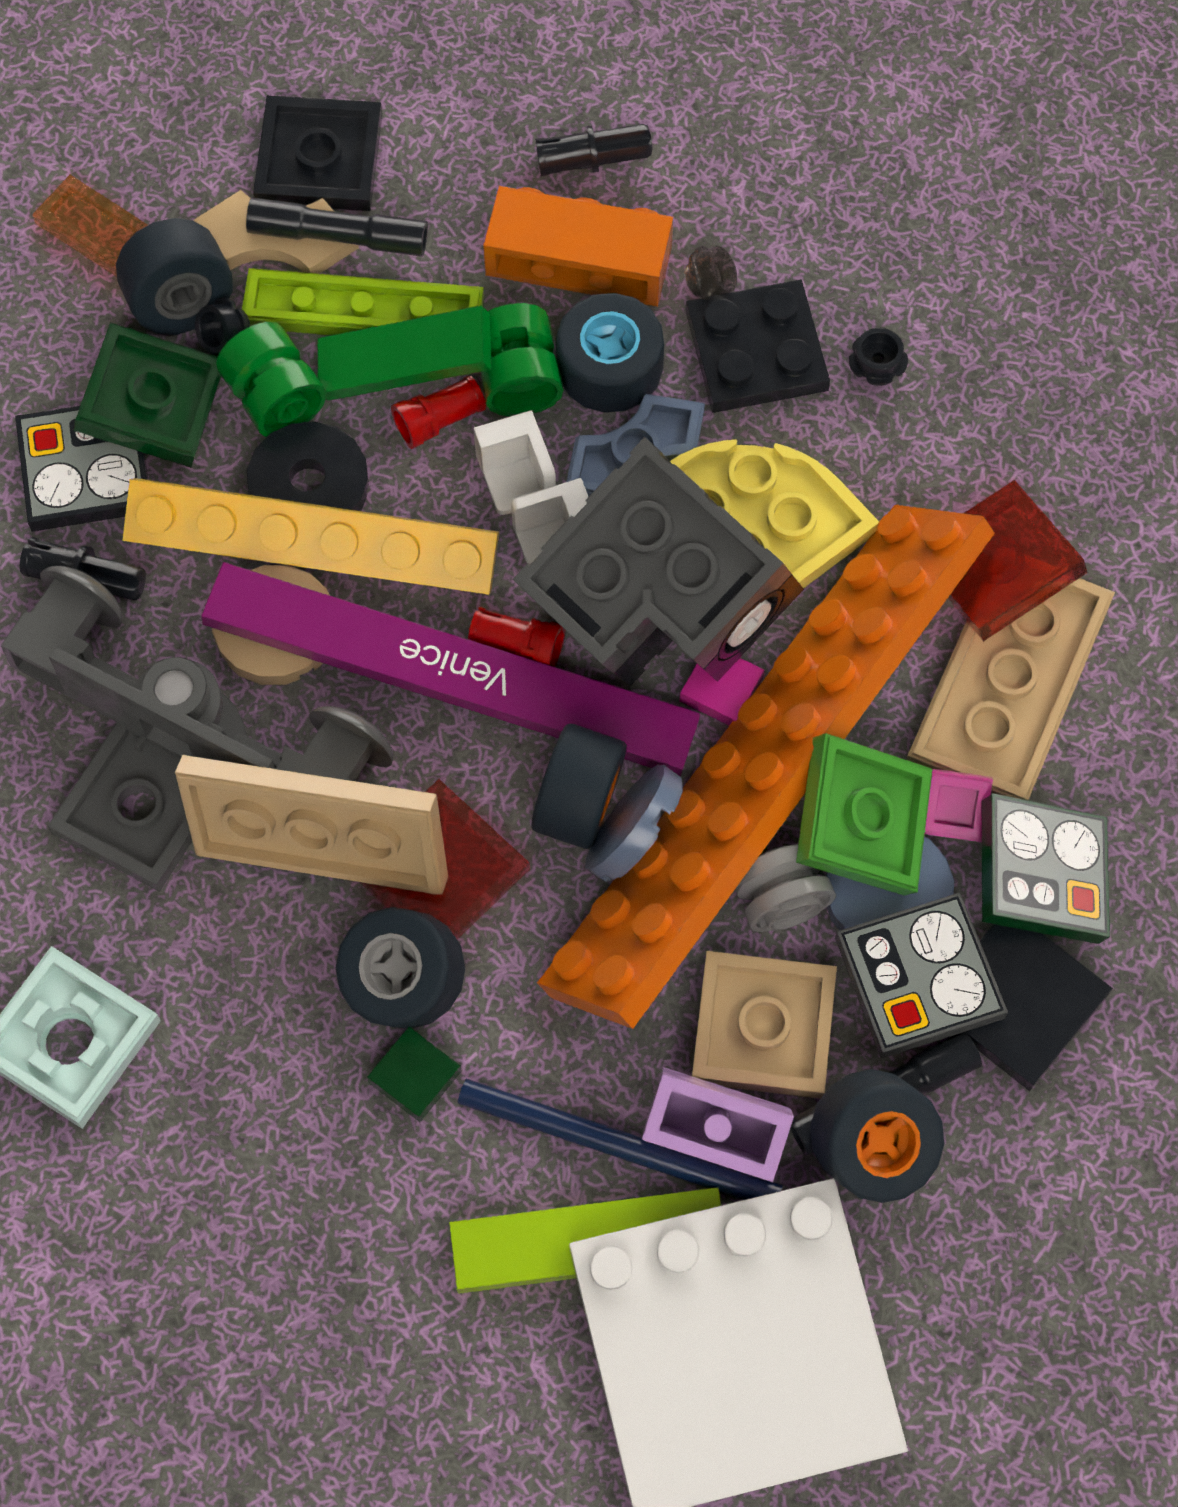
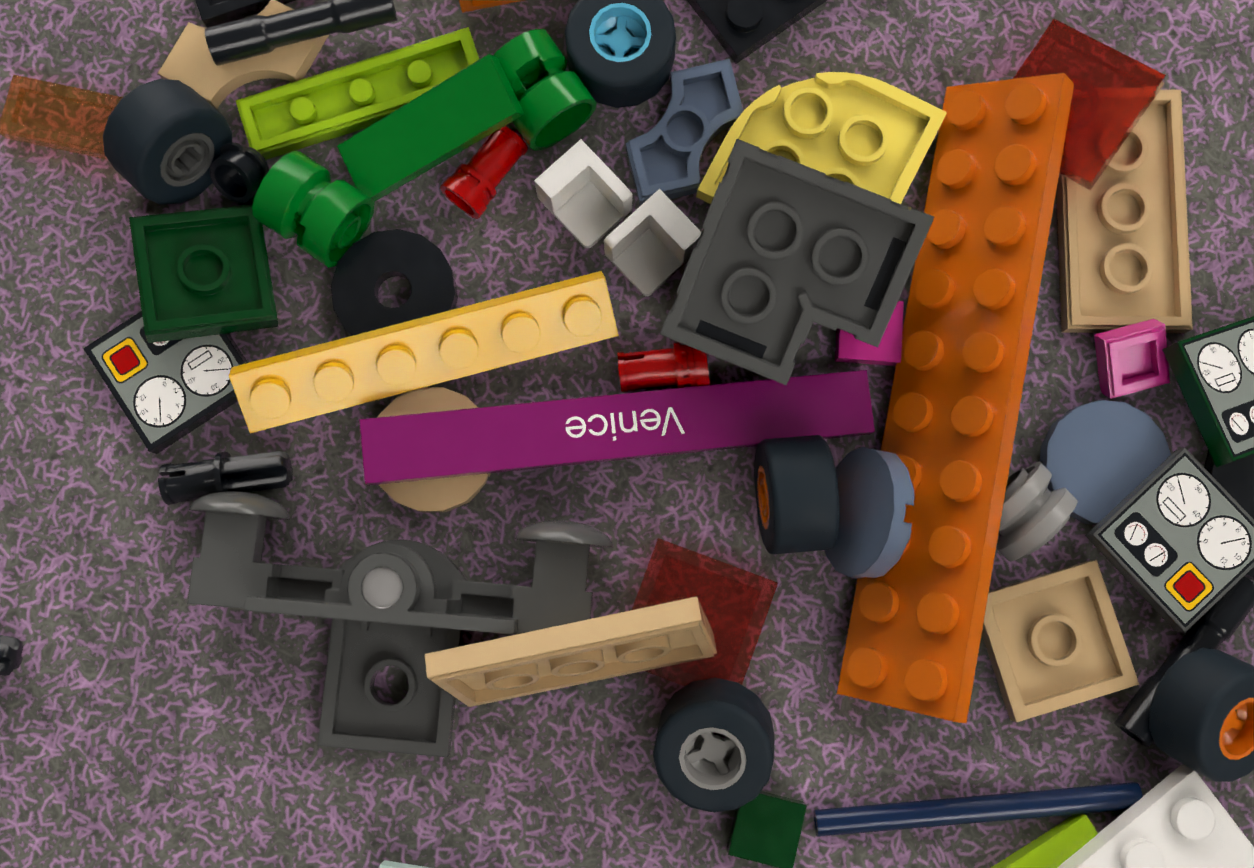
camera: 25 degrees left, 15 degrees up
(718, 1124) = (1071, 768): lavender brick -> none
(864, 815) = (1075, 416): bright green tile -> none

